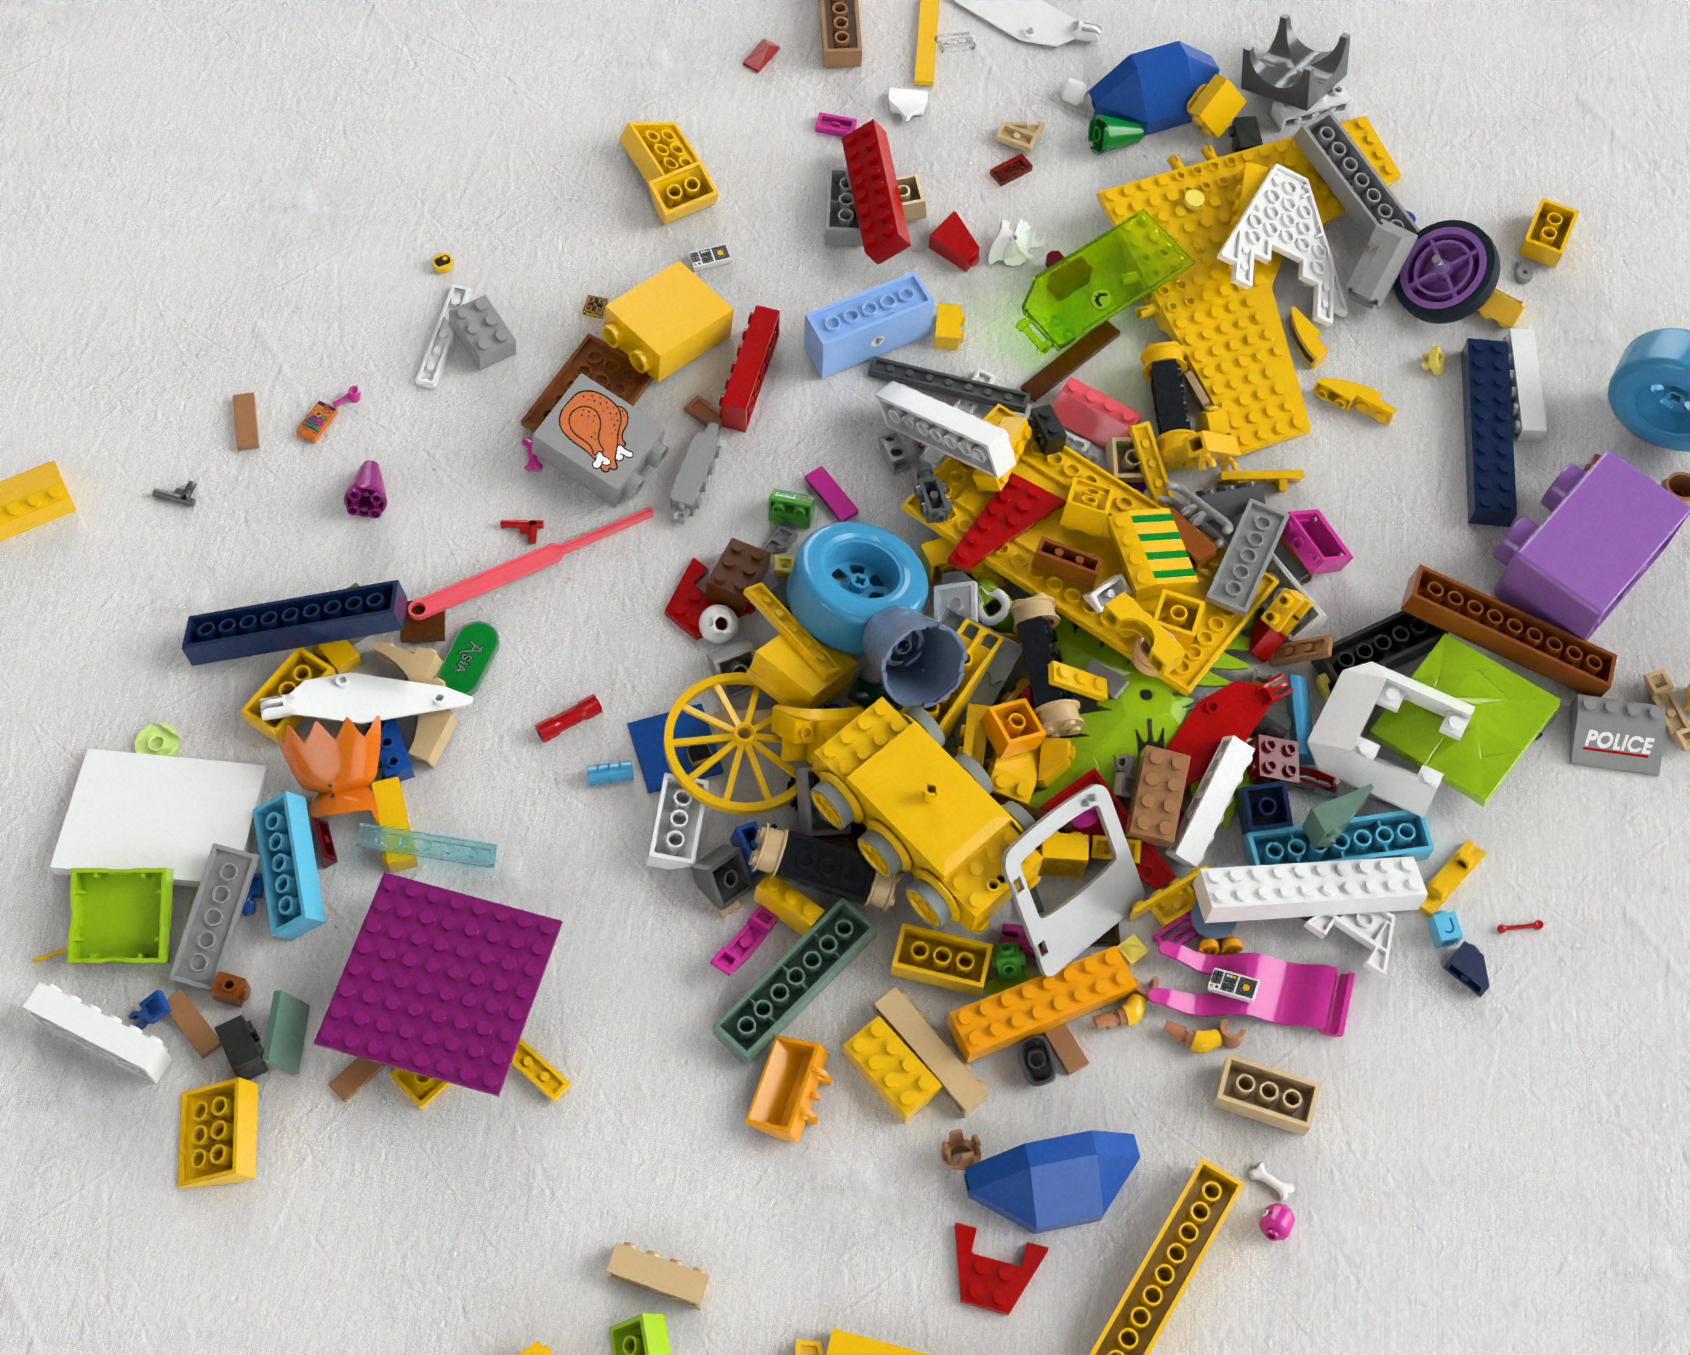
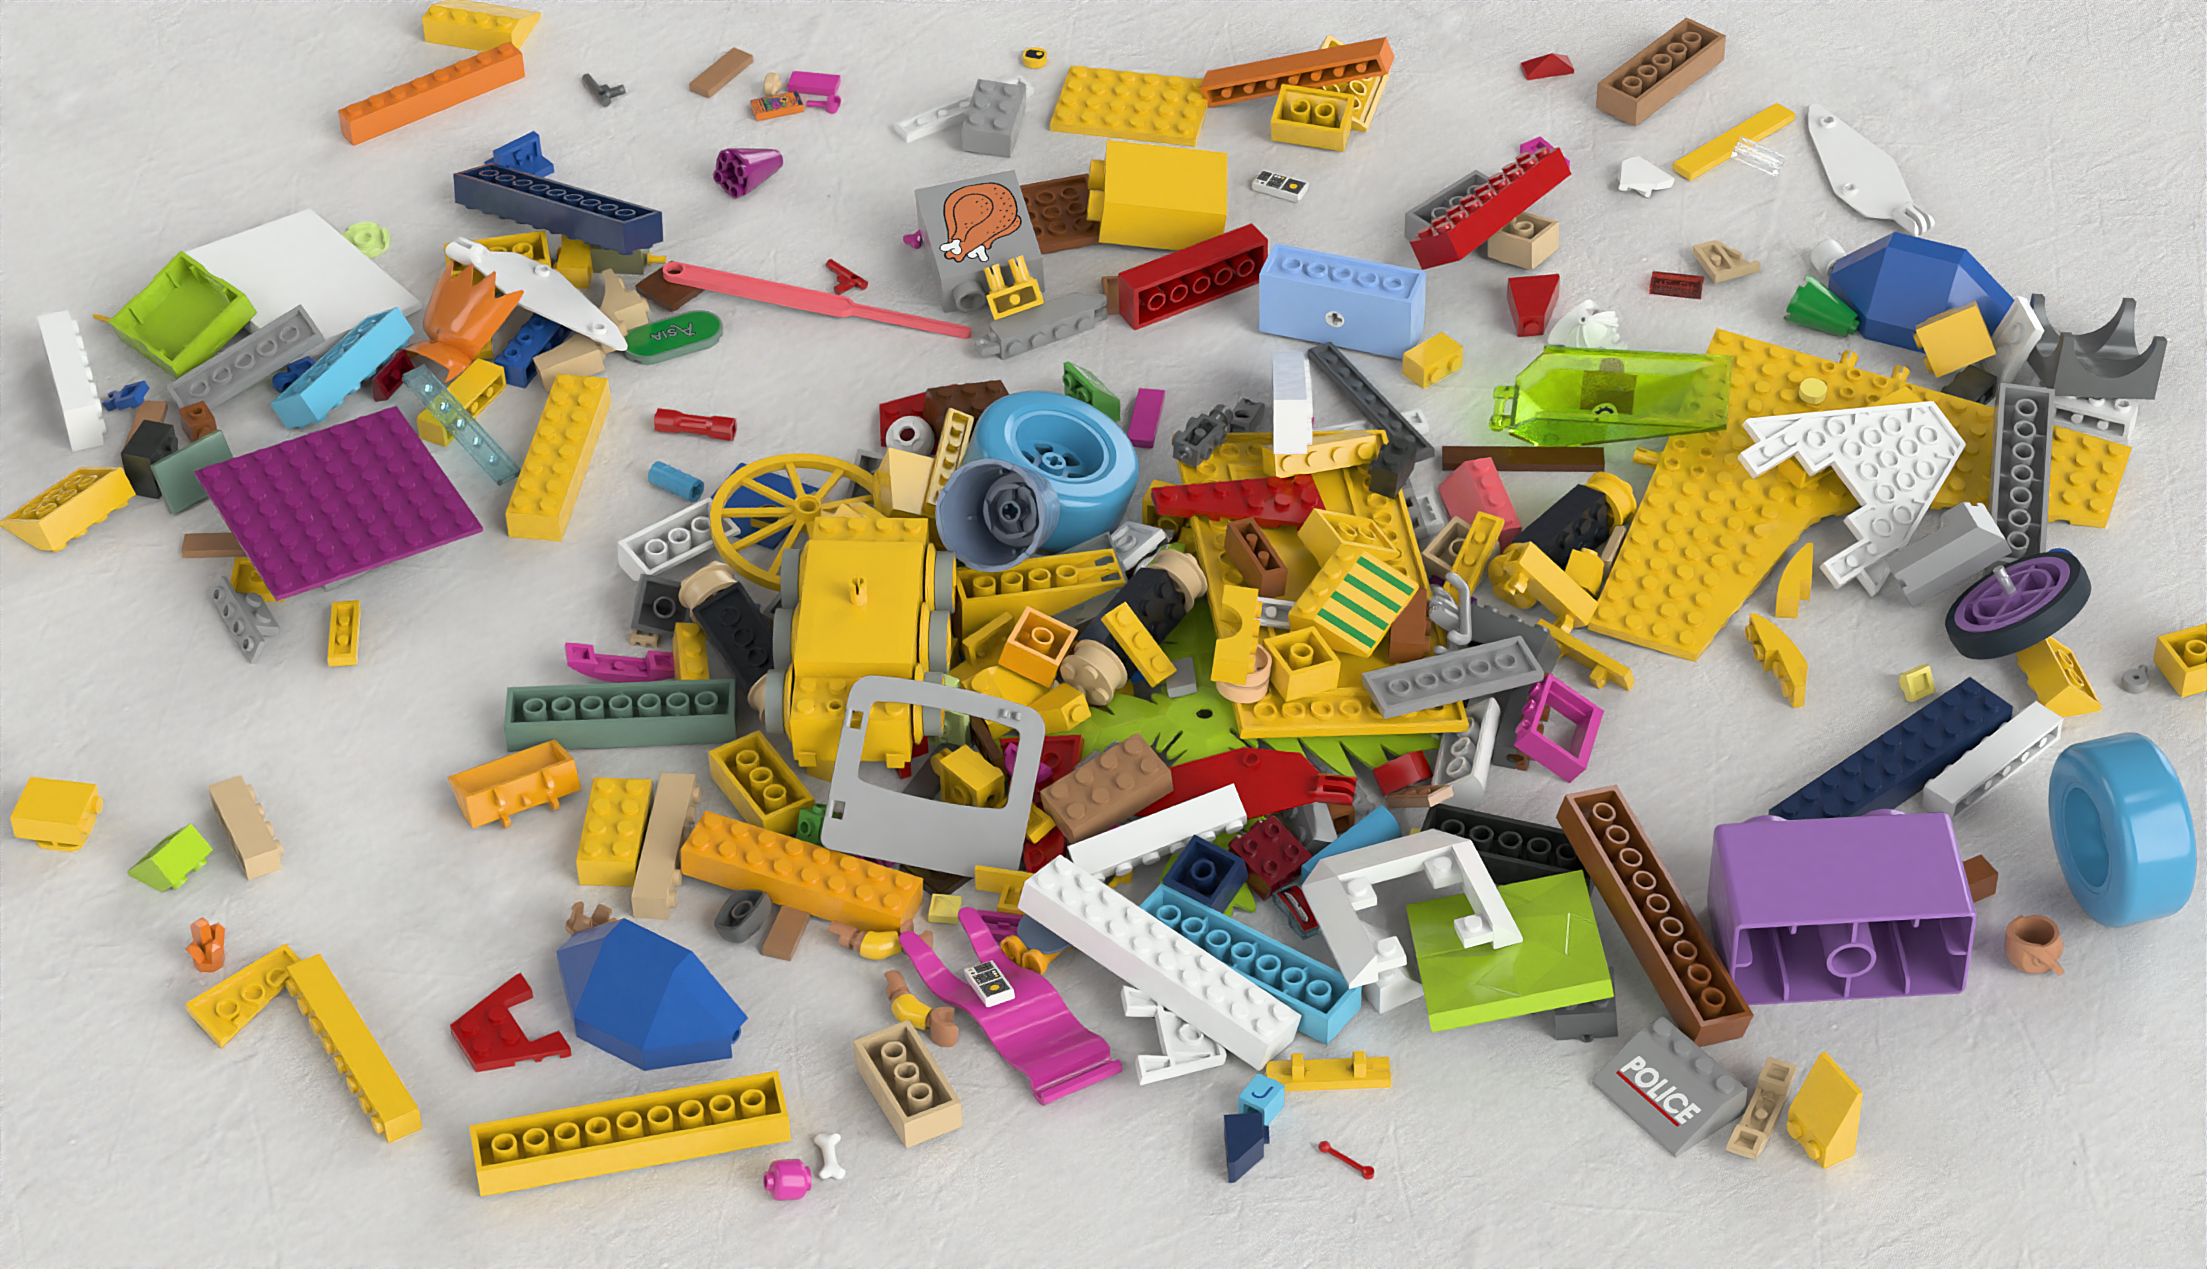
camera: 50 degrees right, 20 degrees down
(63, 588) = (431, 93): none -> orange brick
(194, 596) = (523, 155): none -> blue bracket
(298, 407) = (772, 84): none -> tan tile
(320, 385) = (814, 83): none -> dark pink tile
(456, 1114) = (246, 617): none -> light grey bracket
(514, 816) = (558, 458): none -> yellow brick
(548, 258) = (1130, 106): none -> yellow plate
(649, 165) = (1304, 69): none -> orange brick
(670, 468) = (1010, 300): none -> yellow brick
(1252, 83) = (2013, 341): none -> white plate
(1281, 611) = (1437, 746): yellow hips -> none
(1331, 818) = (1254, 913): sand green slope -> none

